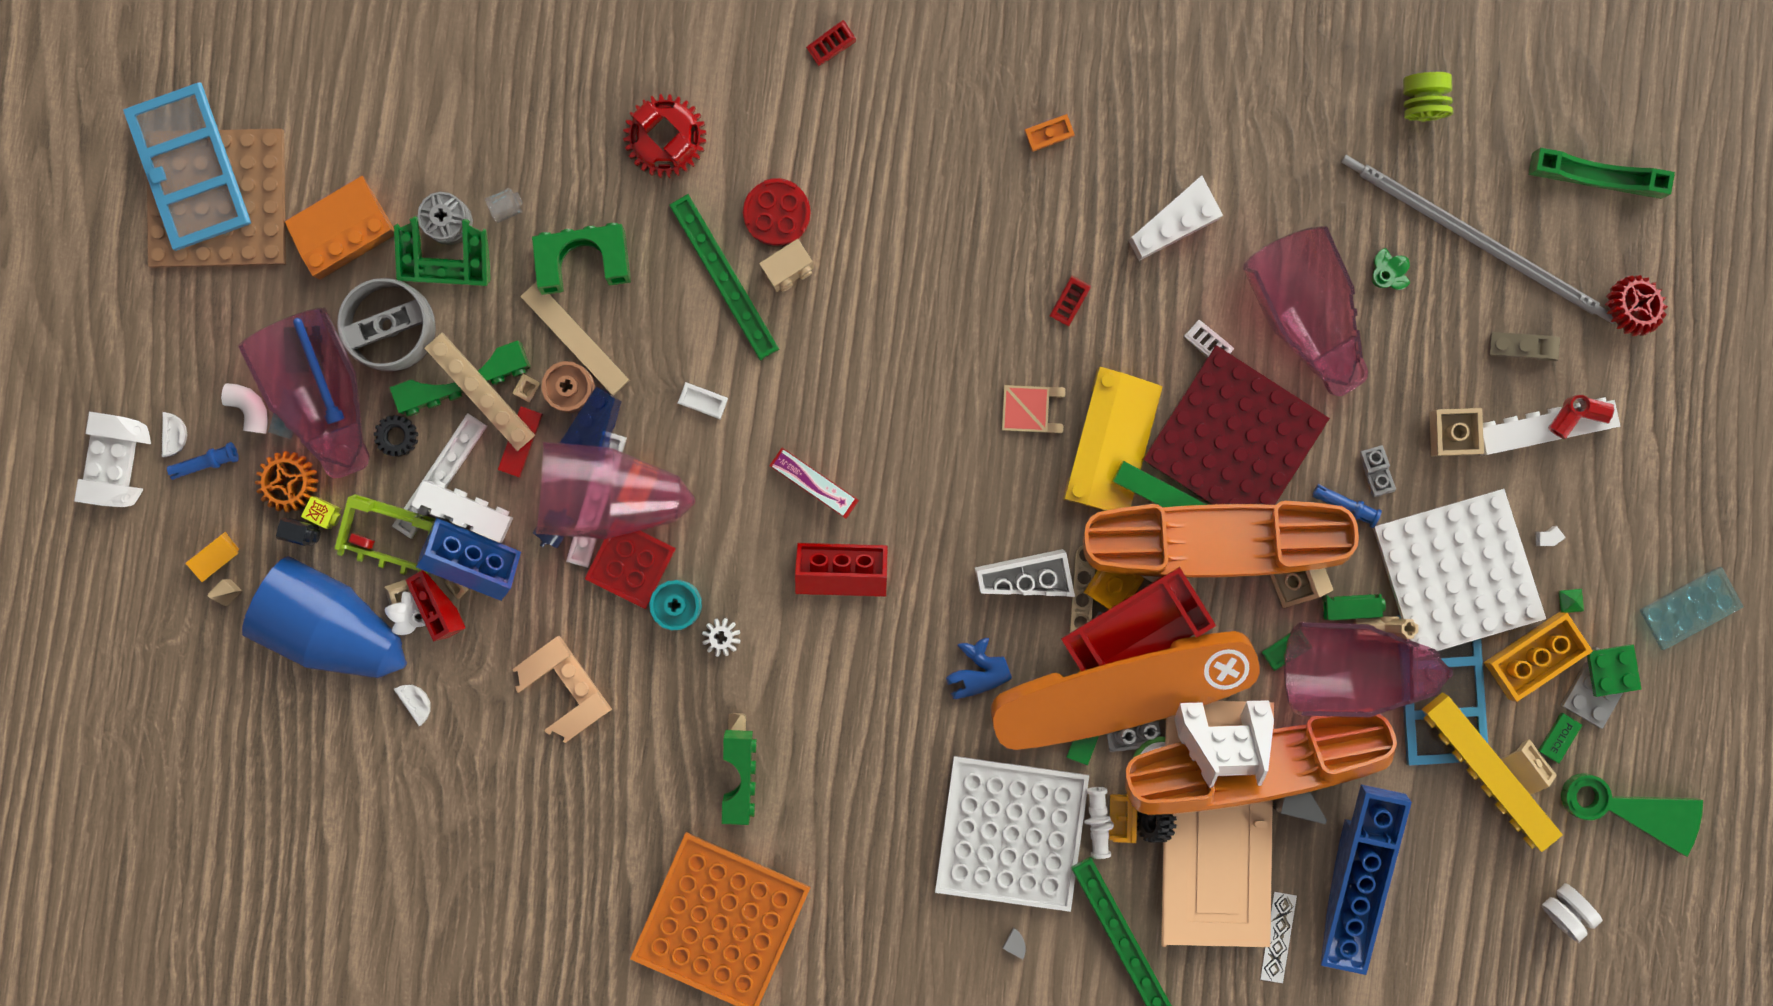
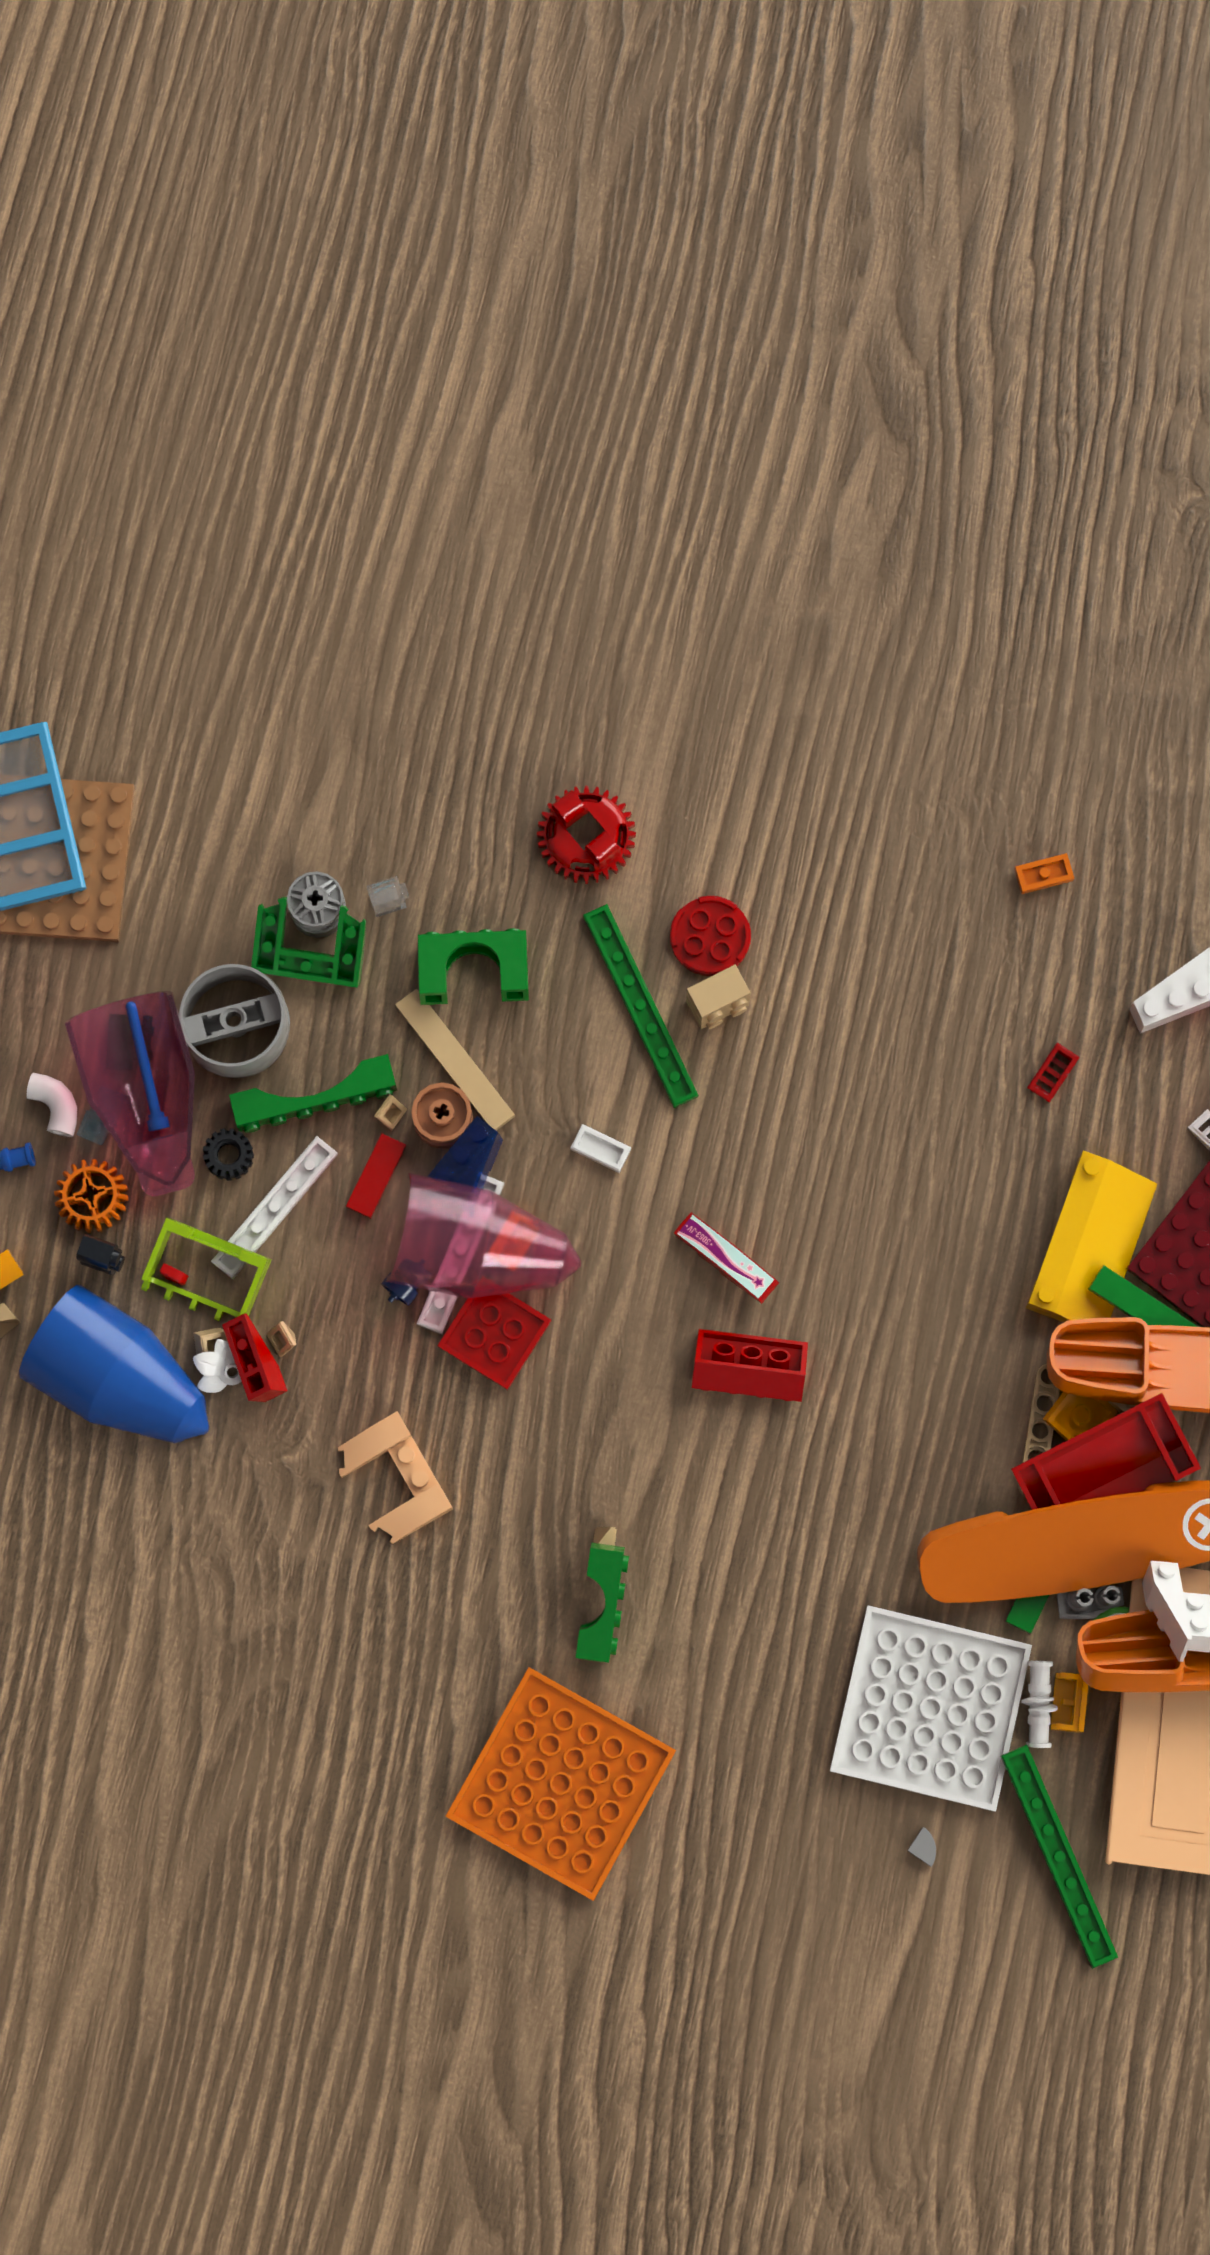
camera: 10 degrees right, 10 degrees down
(321, 513) = (129, 1236): neon yellow brick -> none
(339, 228) = (189, 905): orange slope -> none
(415, 701) = (215, 1475): white tile -> none
(462, 510) = (300, 1249): white wedge -> none
(469, 559) = (302, 1307): blue slope -> none
(479, 391) = (337, 1109): tan plate -> none
(662, 605) = (540, 1371): teal wheel -> none
(727, 633) = (586, 1435): white gear -> none
(834, 31) = (789, 738): red slope -> none
(977, 681) = (903, 1517): blue piece -> none
(1027, 409) = (992, 1195): coral flag -> none
(1030, 575) = (982, 1393): white wedge -> none
(1153, 832) = (1108, 1719): black tyre -> none

